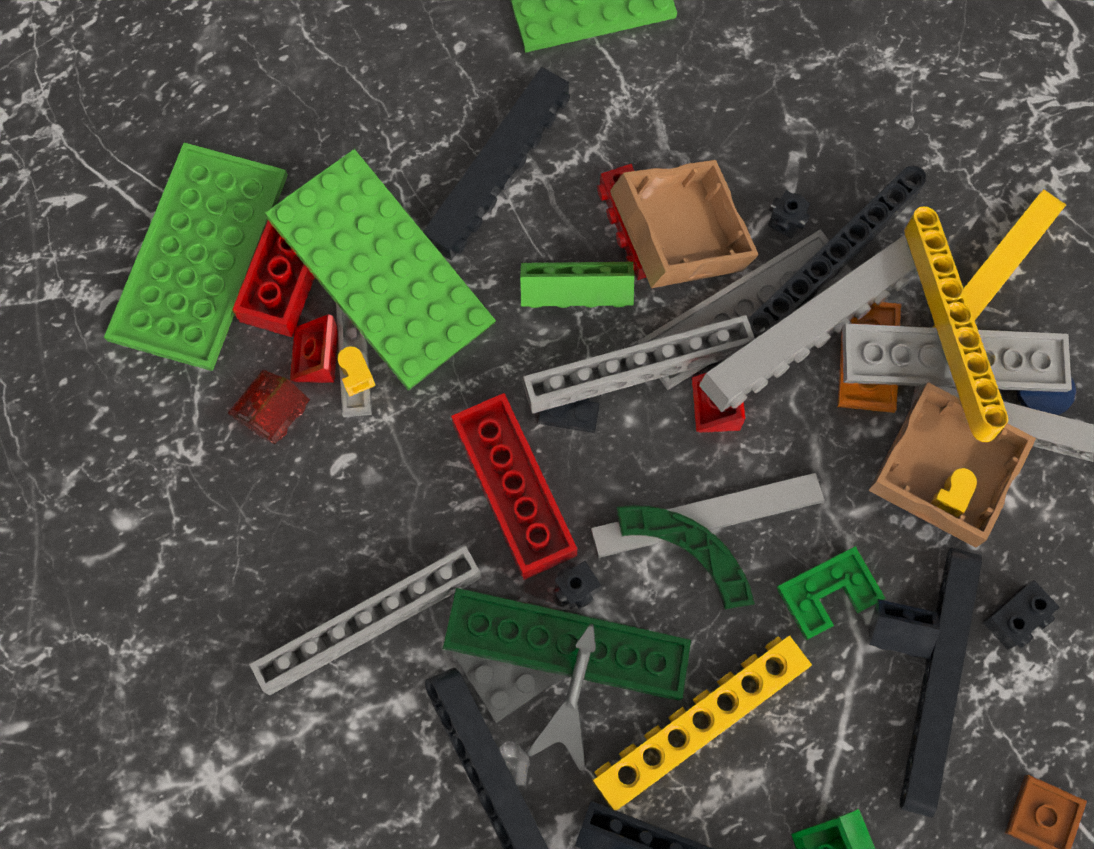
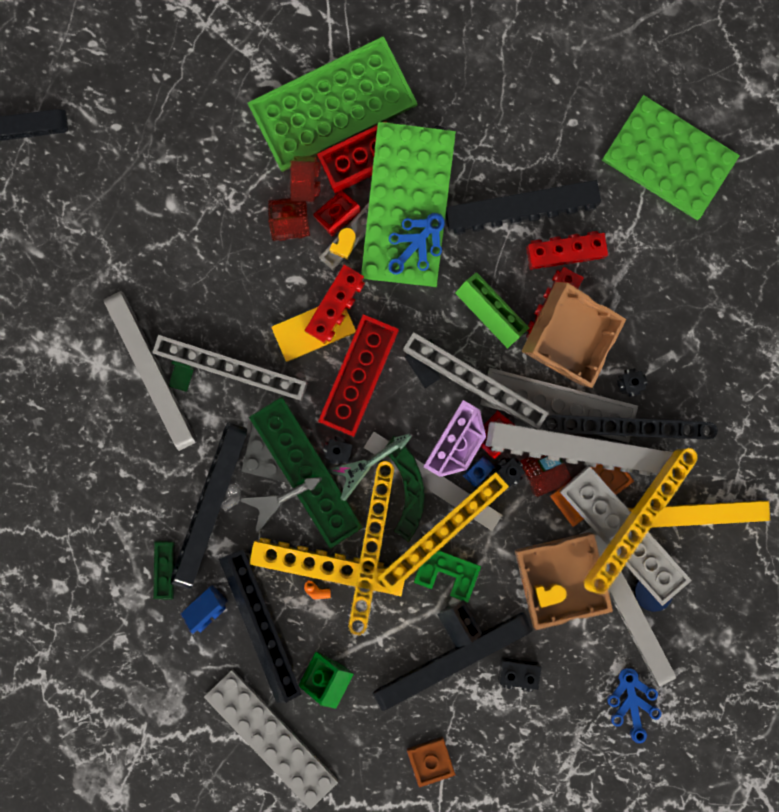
camera: 45 degrees right, 15 degrees up
(244, 345) = (304, 178): none -> clear red brick
(280, 719) = (150, 370): none -> light grey beam
(320, 687) = (181, 376): none -> dark green bracket
(410, 440) = (335, 304): none -> red brick
(414, 492) = (296, 343): none -> yellow tile
(430, 289) = (418, 241): none -> blue plant
(586, 159) = (566, 251): none -> red brick
(619, 585) = (356, 471): none -> sand green piece
(688, 443) = (458, 442): none -> lavender wedge
(720, 766) = (315, 592): none -> orange arm
(731, 658) = (380, 480): none -> yellow beam
(742, 455) = (478, 471): none -> blue leg
(772, 421) = (512, 465): none -> black brick
(779, 551) = (443, 532): none -> yellow brick
(808, 386) = (545, 474): none -> clear red slope

